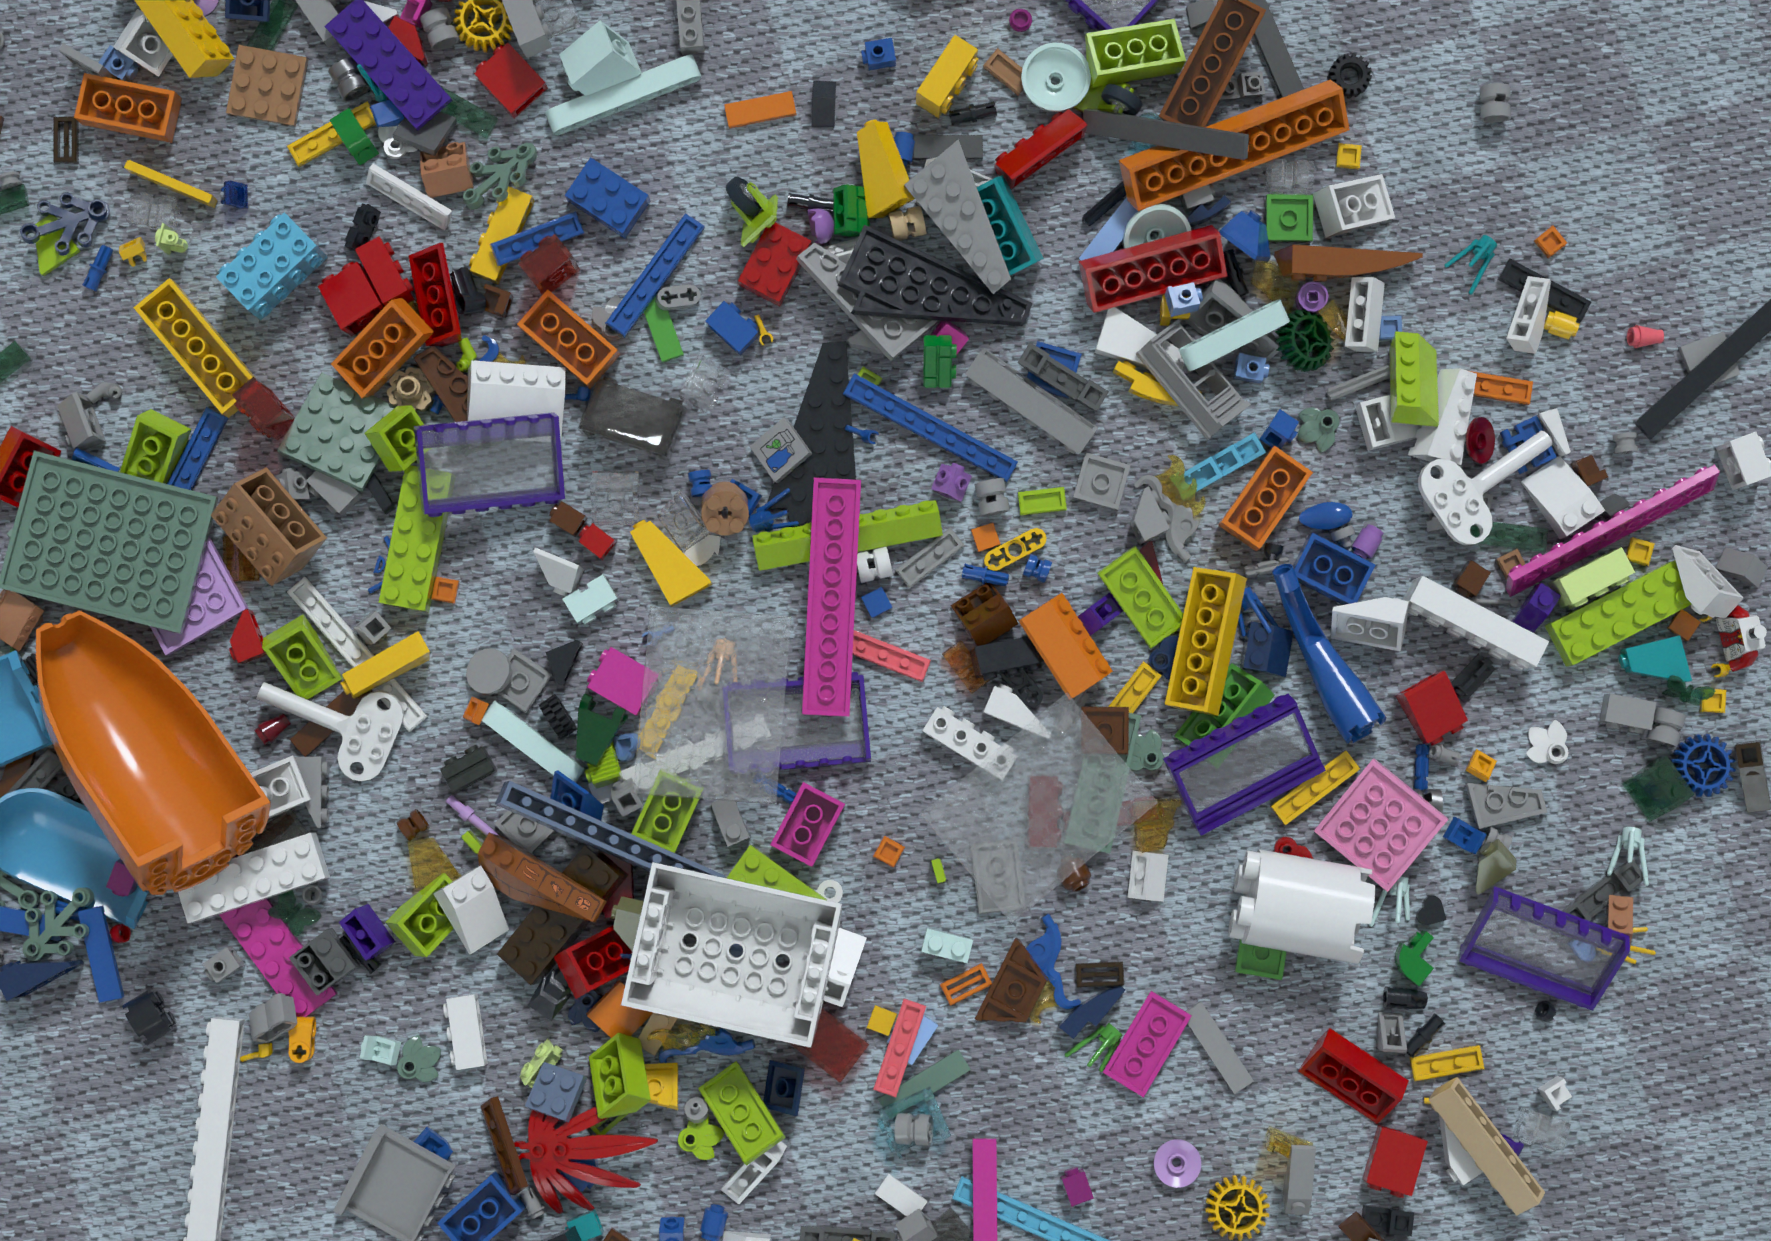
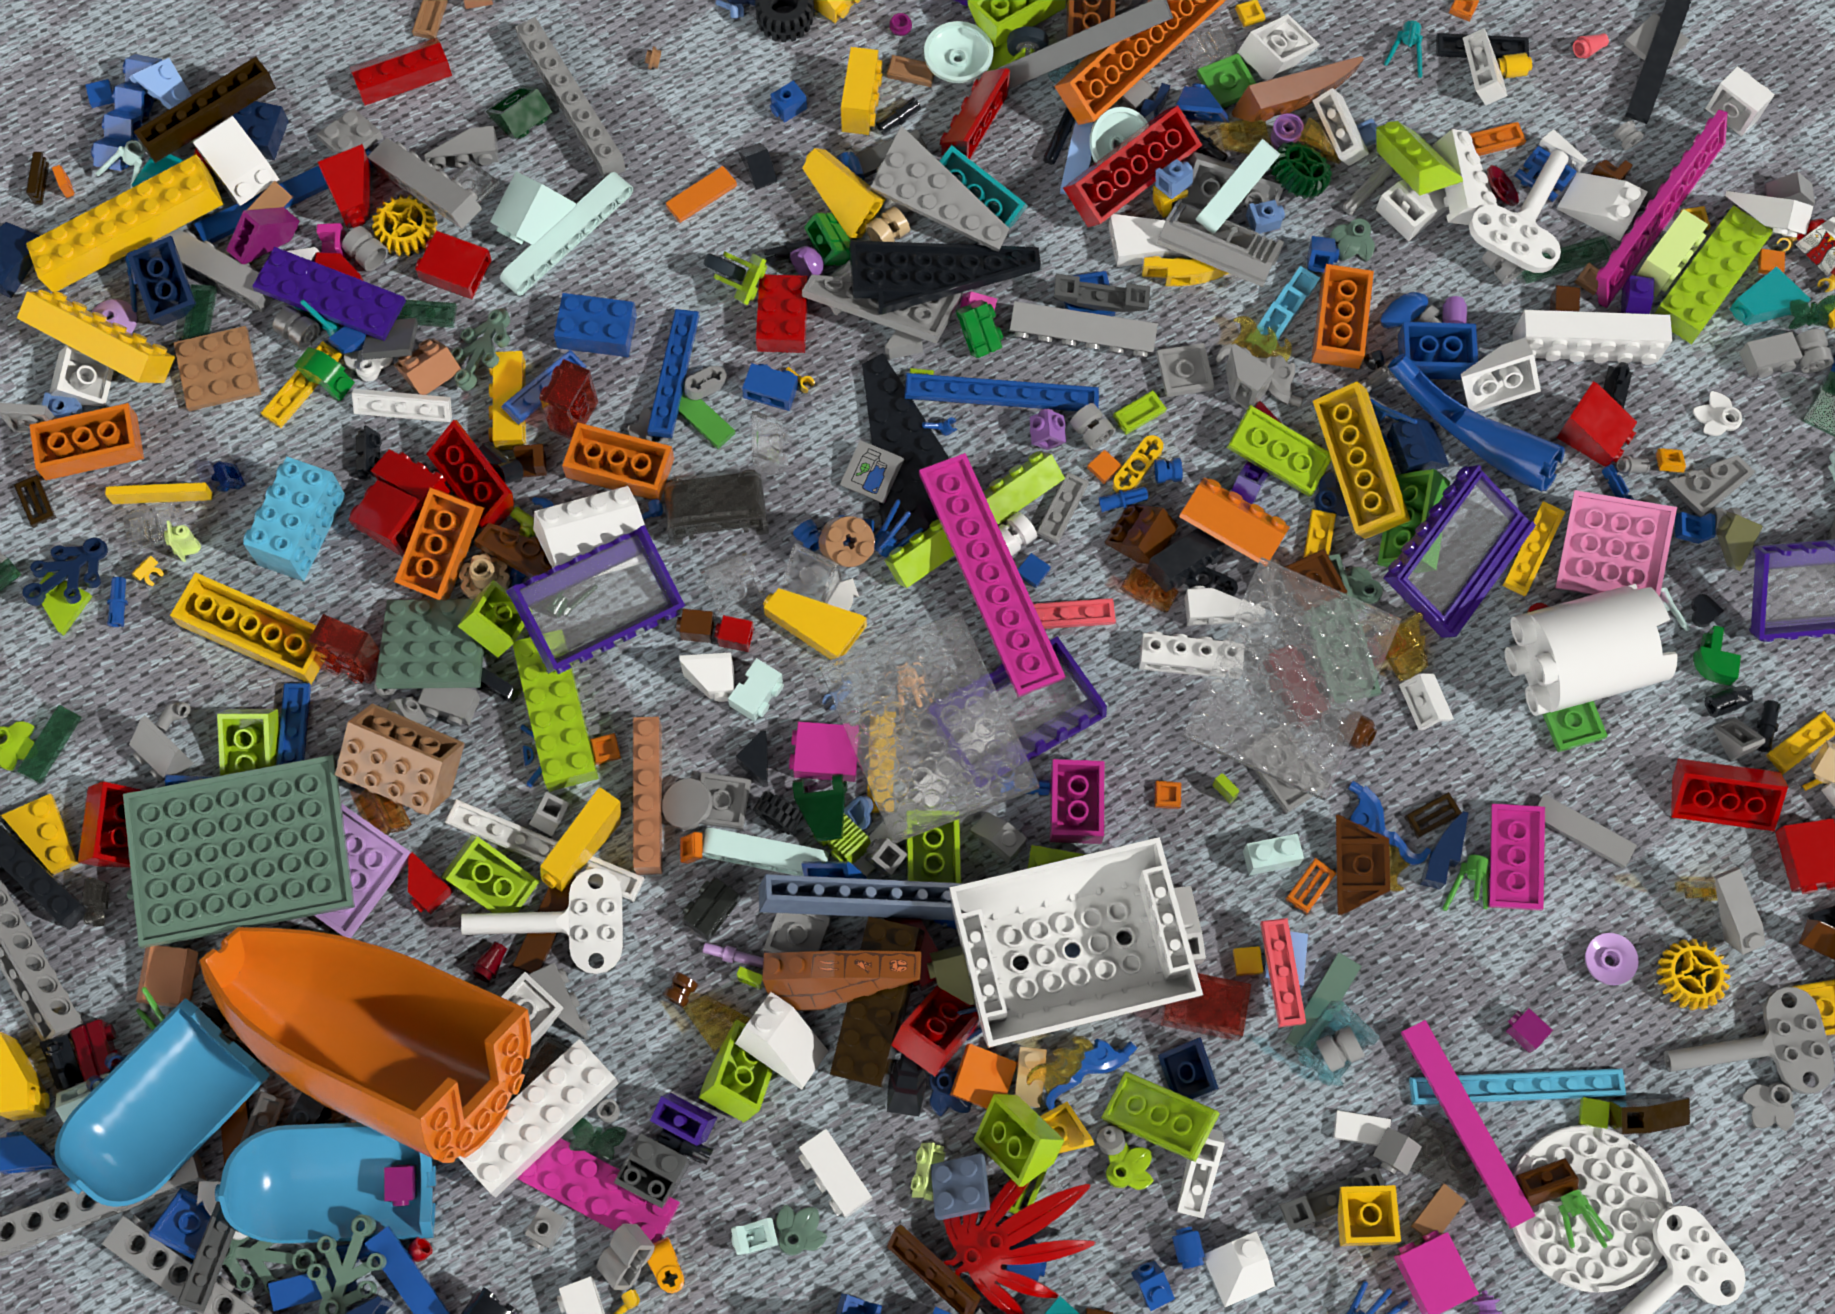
camera: 25 degrees left, 15 degrees down
(459, 649) = (647, 795): none -> nougat brick

